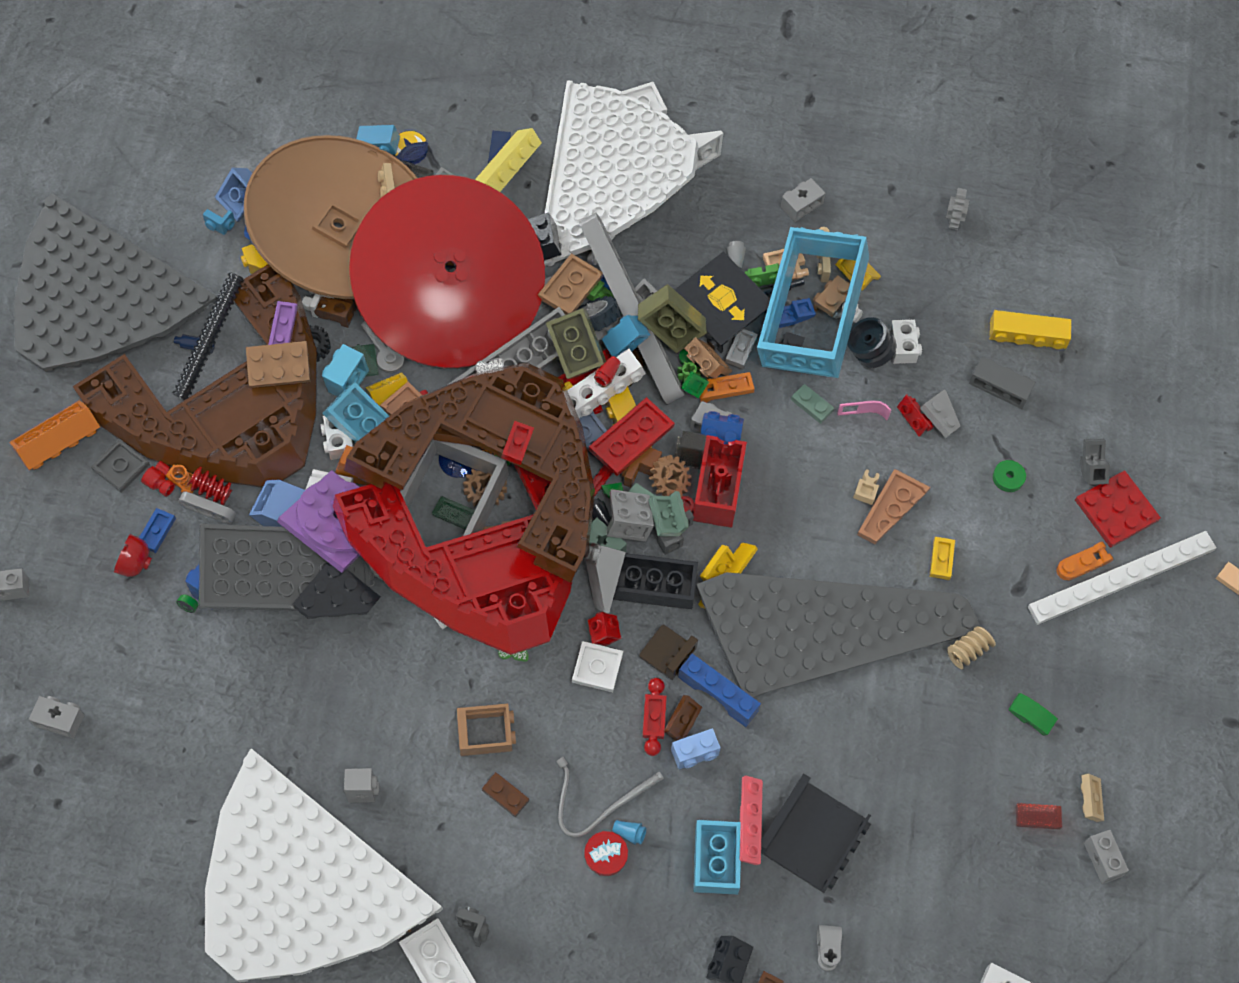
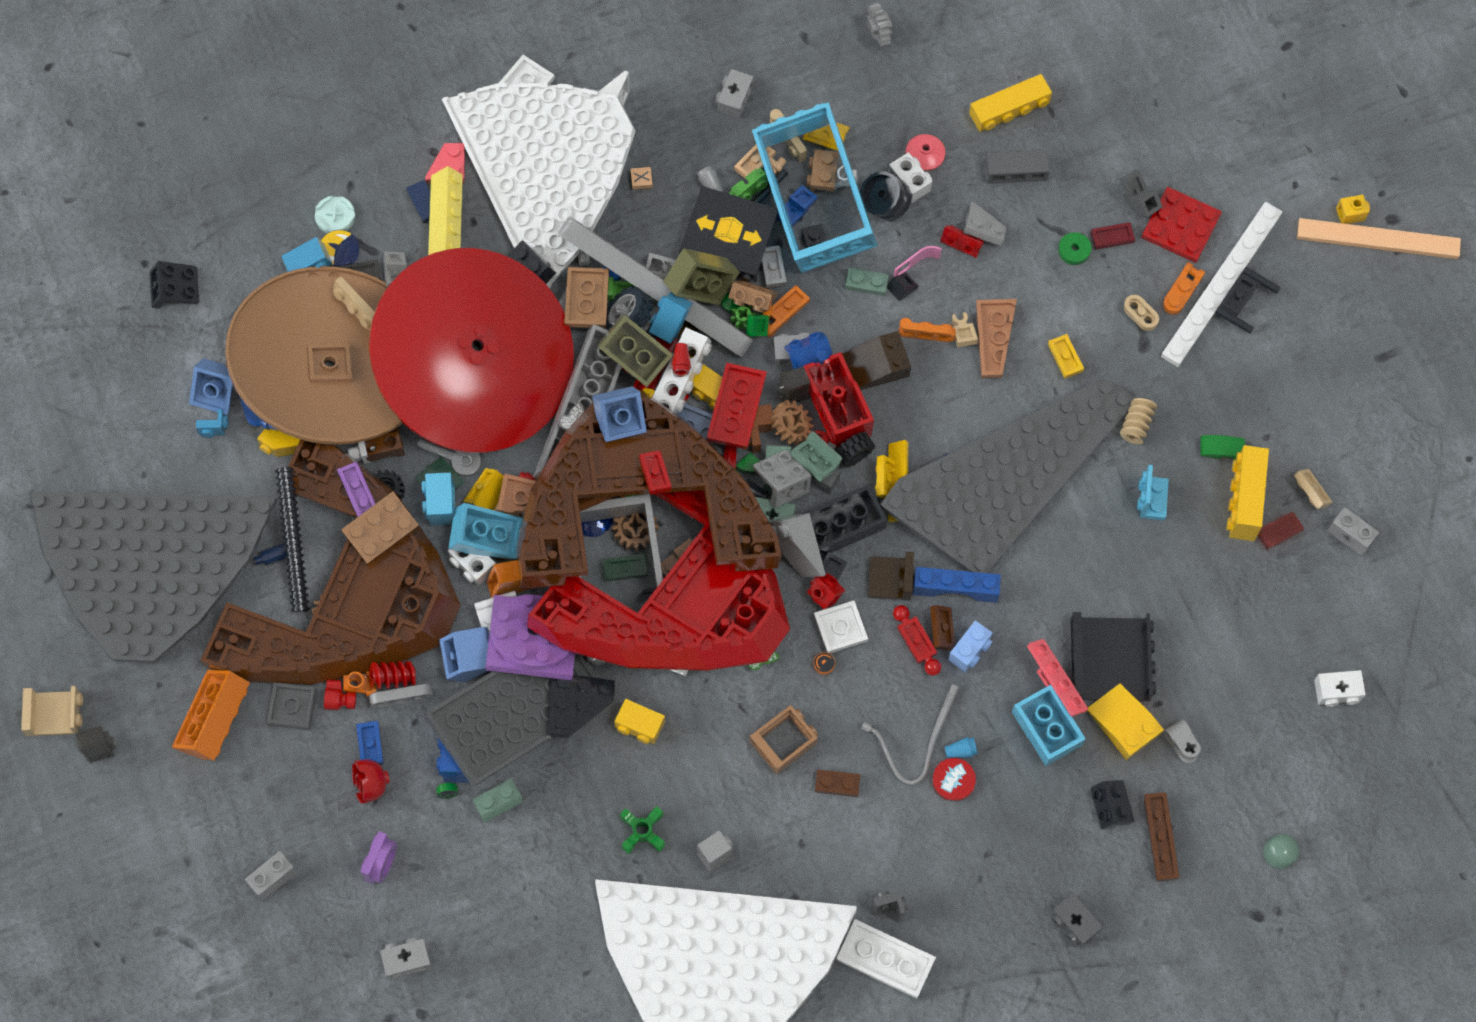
camera: 30 degrees left, 5 degrees up
(92, 623) = (380, 859): none -> medium lavender piece
(219, 635) = (497, 800): none -> sand green brick
(268, 104) = (173, 283): none -> black bracket
(329, 728) = (649, 822): none -> green pin
(377, 642) = (639, 722): none -> yellow brick
(425, 120) = (334, 214): none -> light aqua tile
(522, 381) = (619, 413): none -> medium blue slope
(544, 127) = (450, 155): none -> coral wing
(563, 688) = (824, 663): none -> black tile
(625, 613) = (834, 565): none -> black plate
(682, 223) = (641, 178): none -> light nougat tile
(708, 528) = (855, 449): none -> black tyre
(774, 470) = (878, 361): none -> dark brown slope
(788, 896) = (1125, 721): none -> yellow slope
(835, 469) = (926, 331): none -> orange plate
(840, 423) = (902, 286): none -> black slope
(933, 337) = (928, 159): none -> coral dish
(941, 718) = (1153, 496): none -> medium azure bracket
(1027, 764) = (1248, 493): none -> yellow brick
(1034, 561) = (1143, 312): none -> tan plate
(1050, 484) = (1112, 235): none -> dark red tile
(1133, 595) = (1239, 296): none -> black plate

